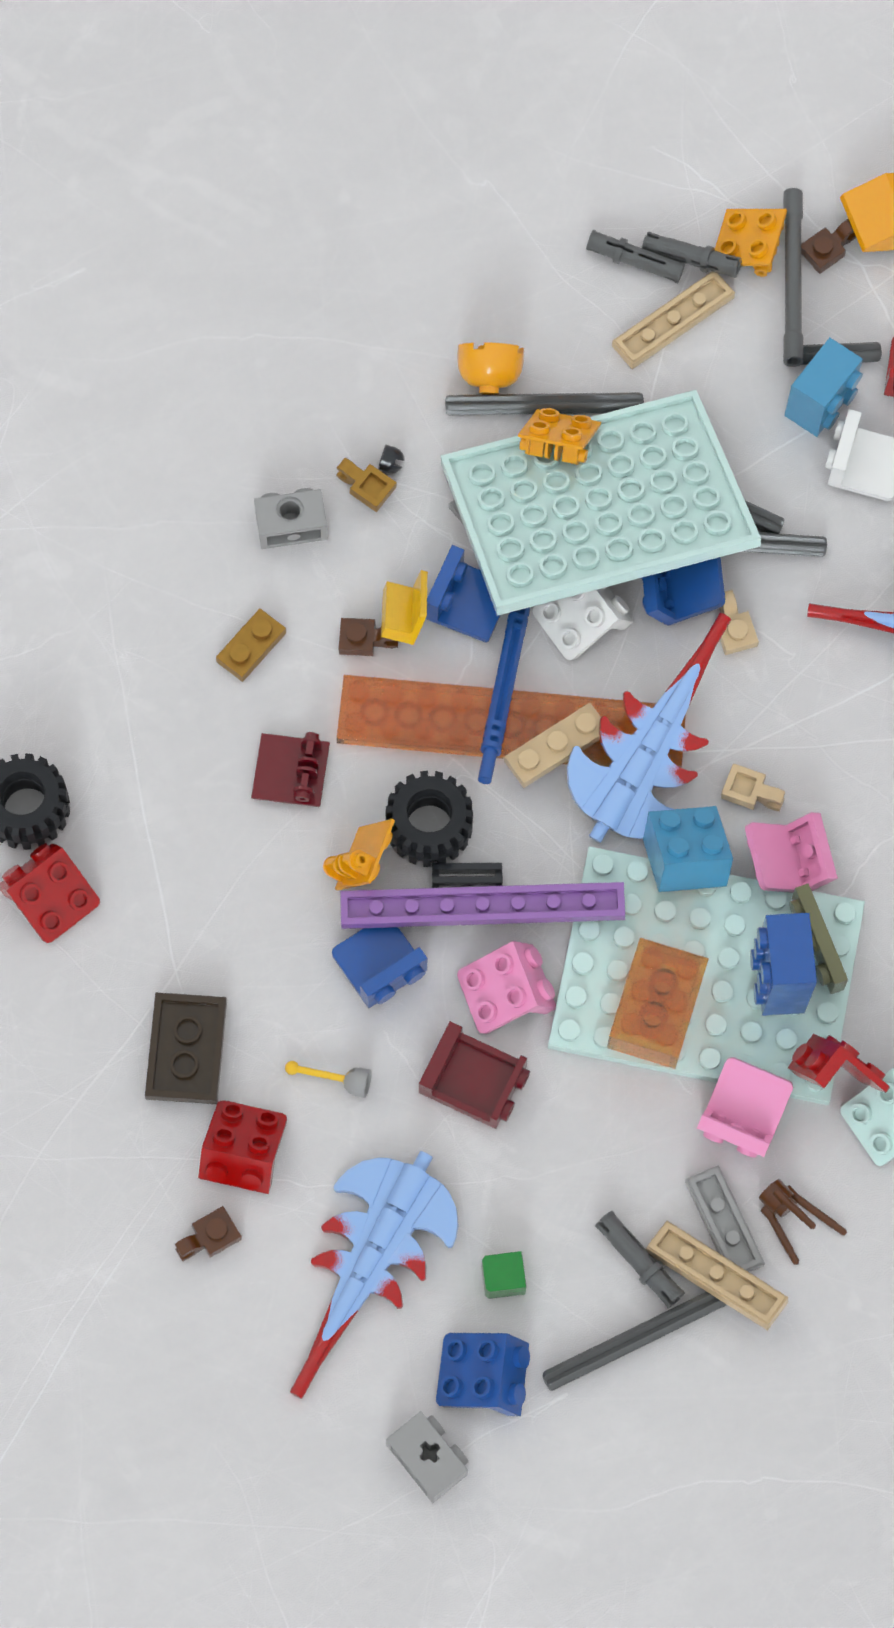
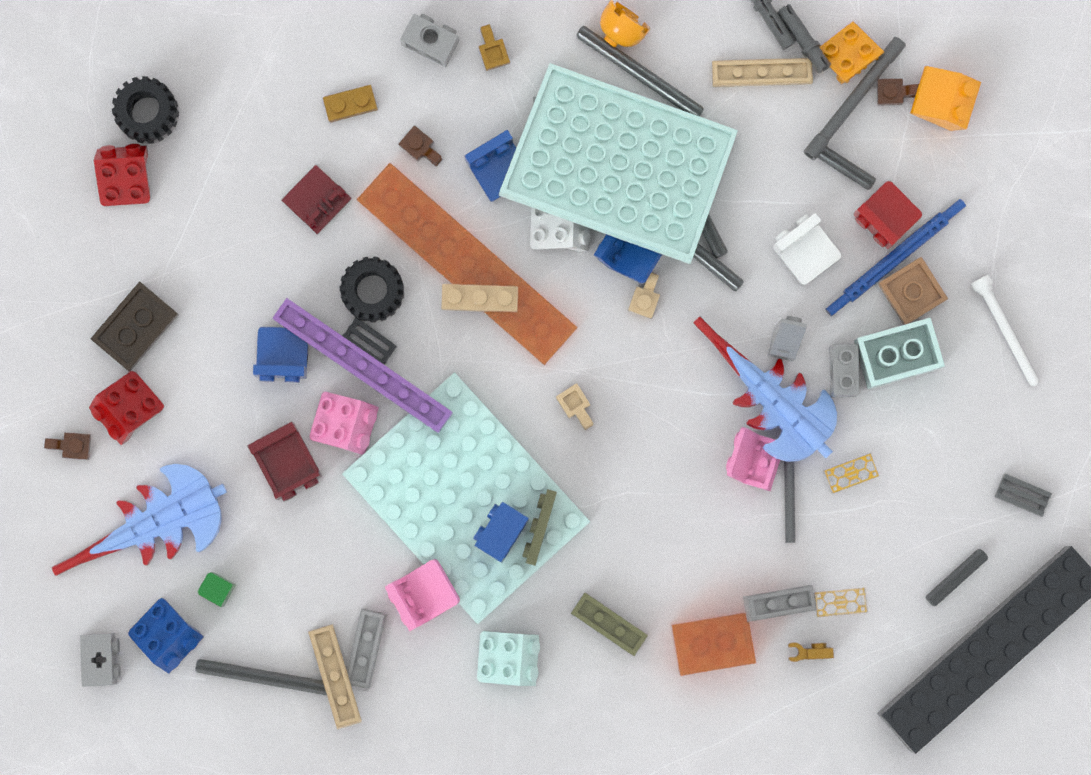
camera: 35 degrees right, 15 degrees up
(355, 1081) = (217, 416): hinge -> none
(361, 863) = (309, 290): light orange hinge -> none
(388, 459) = (519, 44): black hinge -> none
(404, 609) = (451, 148): yellow panel -> none
(502, 693) = (468, 245): blue axle -> none
(562, 430) = (628, 101): light orange hinge -> none
(622, 793) = (496, 354): light blue animal -> none
(637, 1256) = (300, 635): dark grey pin -> none
(657, 1003) = (416, 498): clear orange brick -> none
(687, 849) = (506, 418): dark azure brick -> none
(781, 1200) = (404, 659): reddish brown plant -> none
(791, 854) = (565, 463): bright pink bracket -> none
(822, 1058) = (488, 600): red bracket -> none
(824, 387) = (814, 186): dark azure brick -> none

